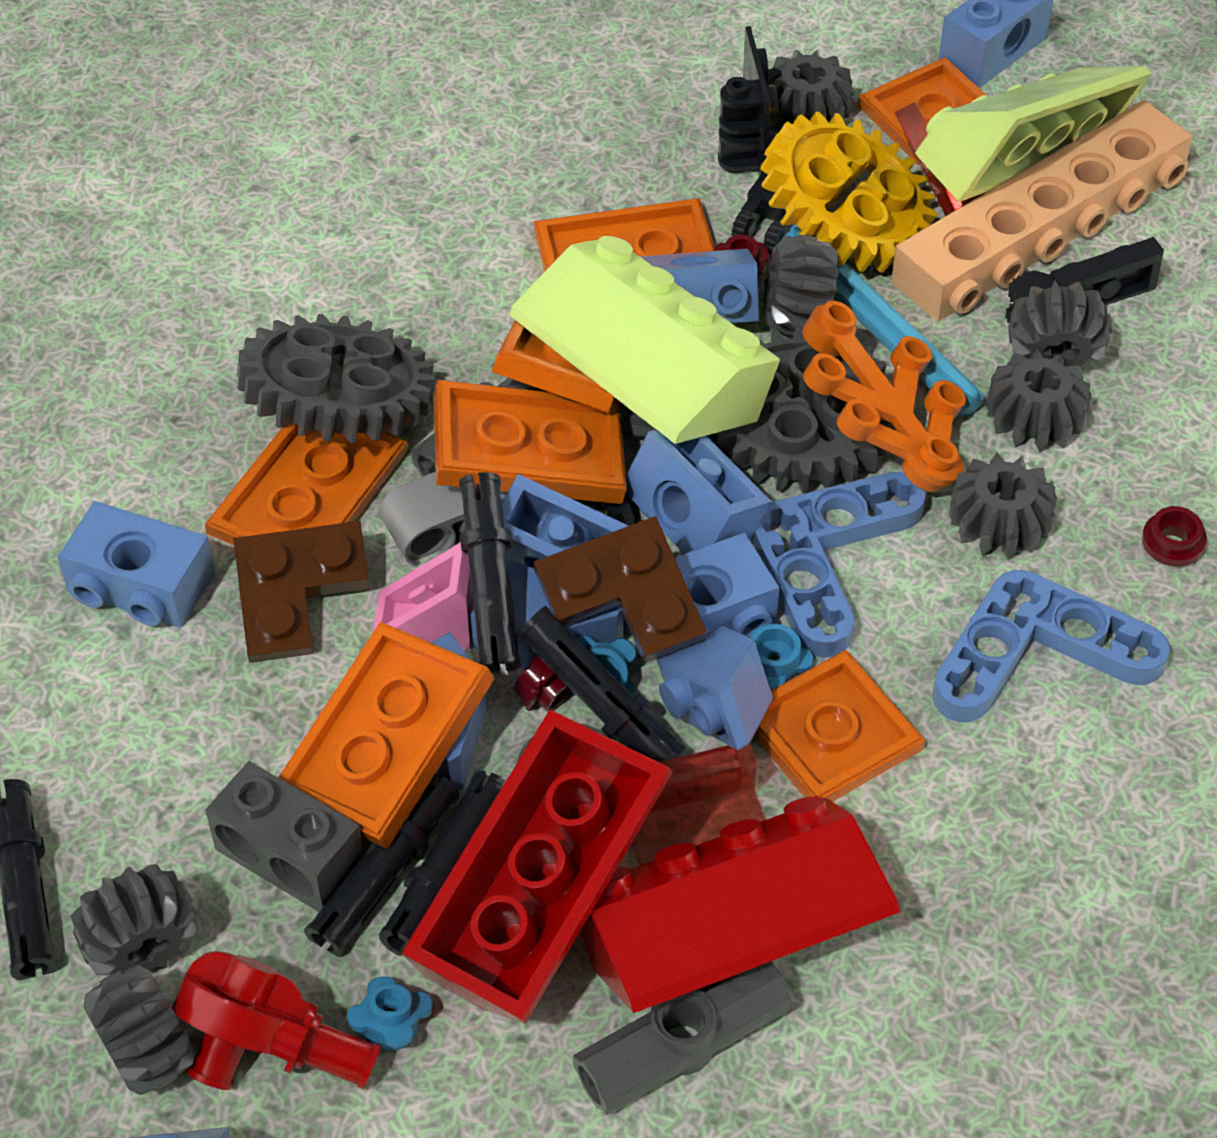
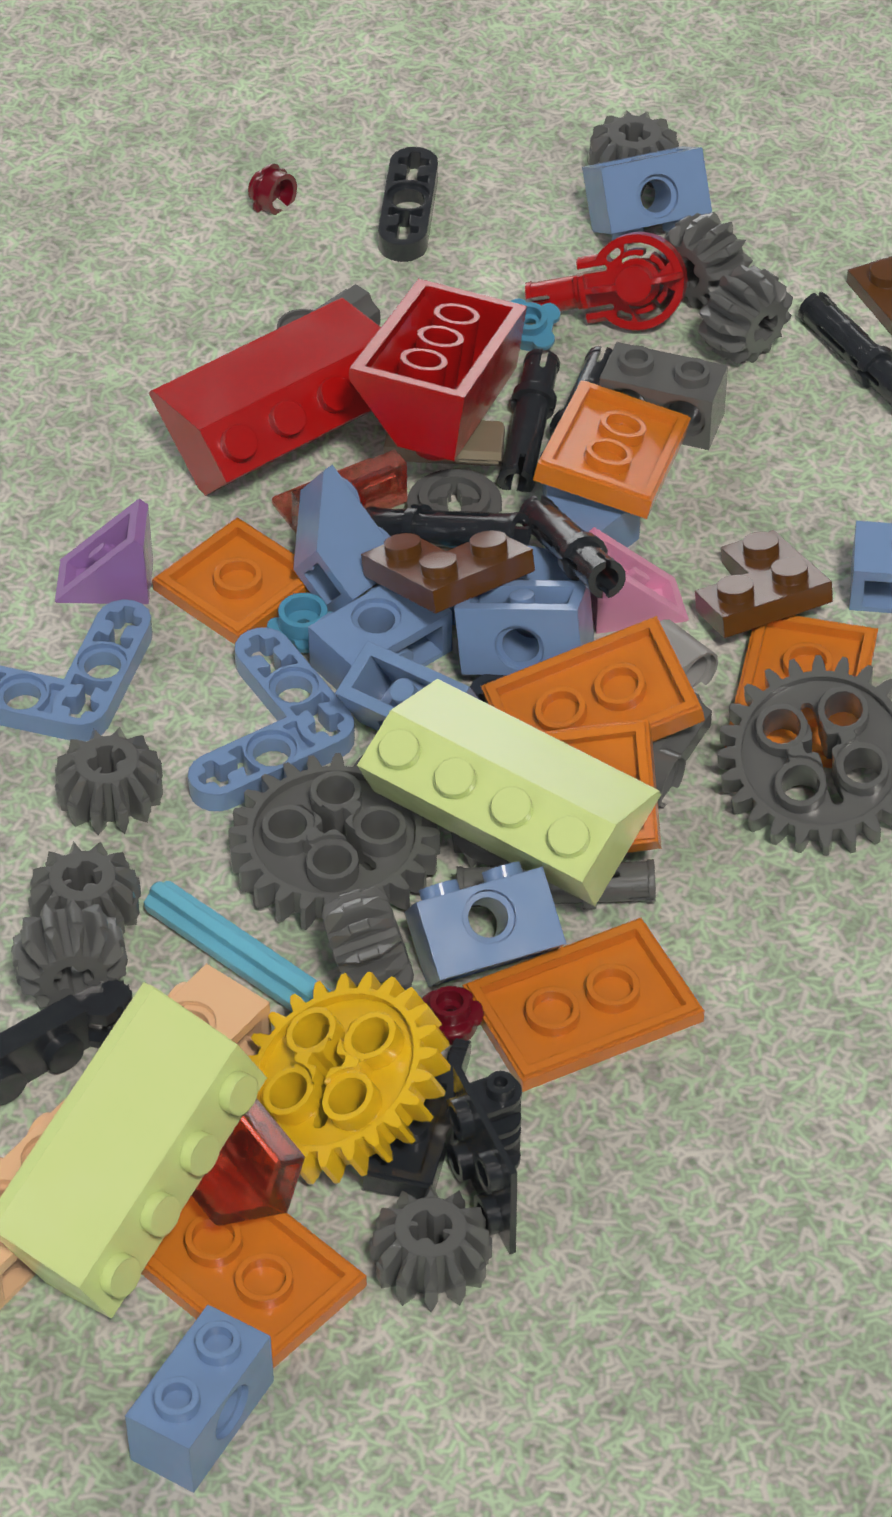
camera: 165 degrees right, 5 degrees down
(928, 454) = (192, 792): orange plant -> none
(972, 752) = (111, 562): none -> medium lavender slope

